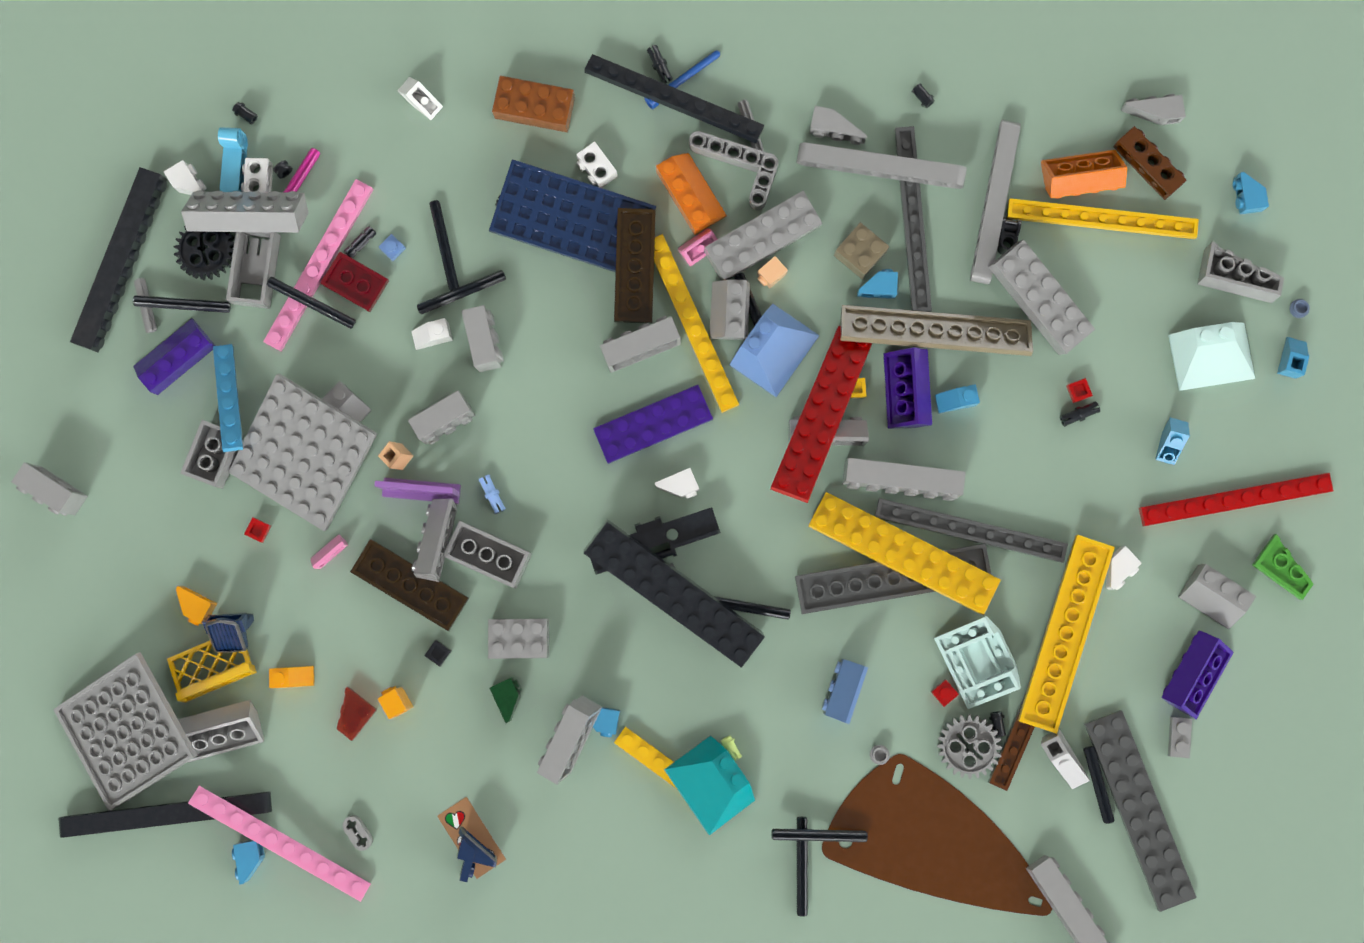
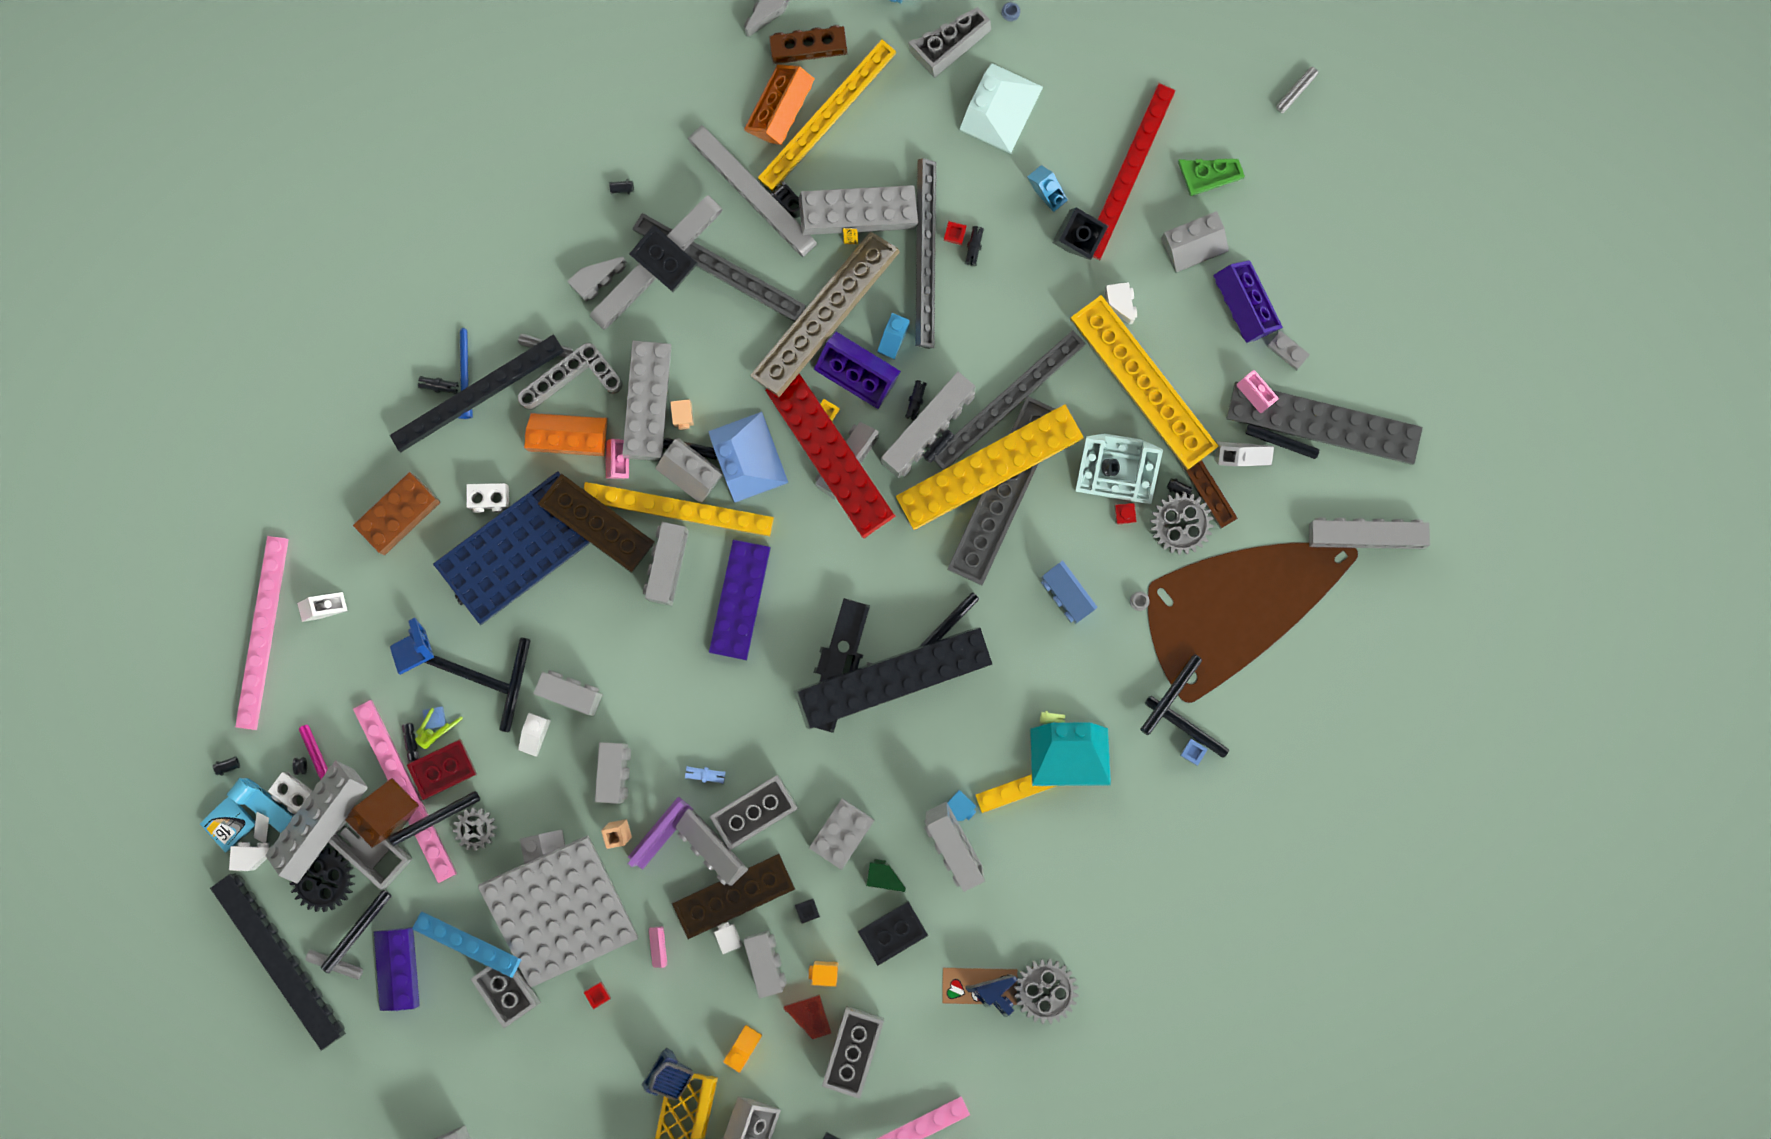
camera: 60 degrees left, 0 degrees up
(194, 605) = (625, 1092): light orange slope -> none
(200, 146) = (228, 824): none -> medium azure slope
(214, 173) = (261, 827): none -> white sticker
(286, 258) = (382, 813): none -> reddish brown slope
(325, 332) = (481, 834): none -> light grey gear
(347, 769) = (853, 1052): none -> light grey brick
(353, 835) = (911, 1085): light grey beam -> none
(368, 67) = (262, 633): none -> bright pink plate
(370, 648) = (765, 964): none -> light grey brick
(372, 252) = (428, 737): none -> lime plant
(372, 603) = (727, 937): none -> white brick
(433, 191) = (412, 649): none -> blue bracket
(466, 736) = (893, 933): none -> black plate
(497, 914) = (1057, 1005): none -> light grey gear
(679, 484) = (806, 611): white slope -> none
(784, 887) = (1193, 752): none -> medium blue plate
(861, 250) = (716, 328): dark tan brick -> none
(880, 285) = (756, 332): dark azure slope -> none
(888, 168) = (663, 258): none -> black plate
(891, 498) = (938, 446): none -> black axle
(917, 454) = (915, 400): none -> black pin
(974, 654) = (1110, 467): none -> black bush
(1015, 306) = (850, 236): none -> yellow sticker
(1044, 378) = (925, 253): none -> dark grey plate
(1126, 735) = (1257, 391): none -> bright pink slope
(1153, 494) = (1080, 233): none -> black slope
(1294, 358) = (1048, 45): dark azure slope -> none

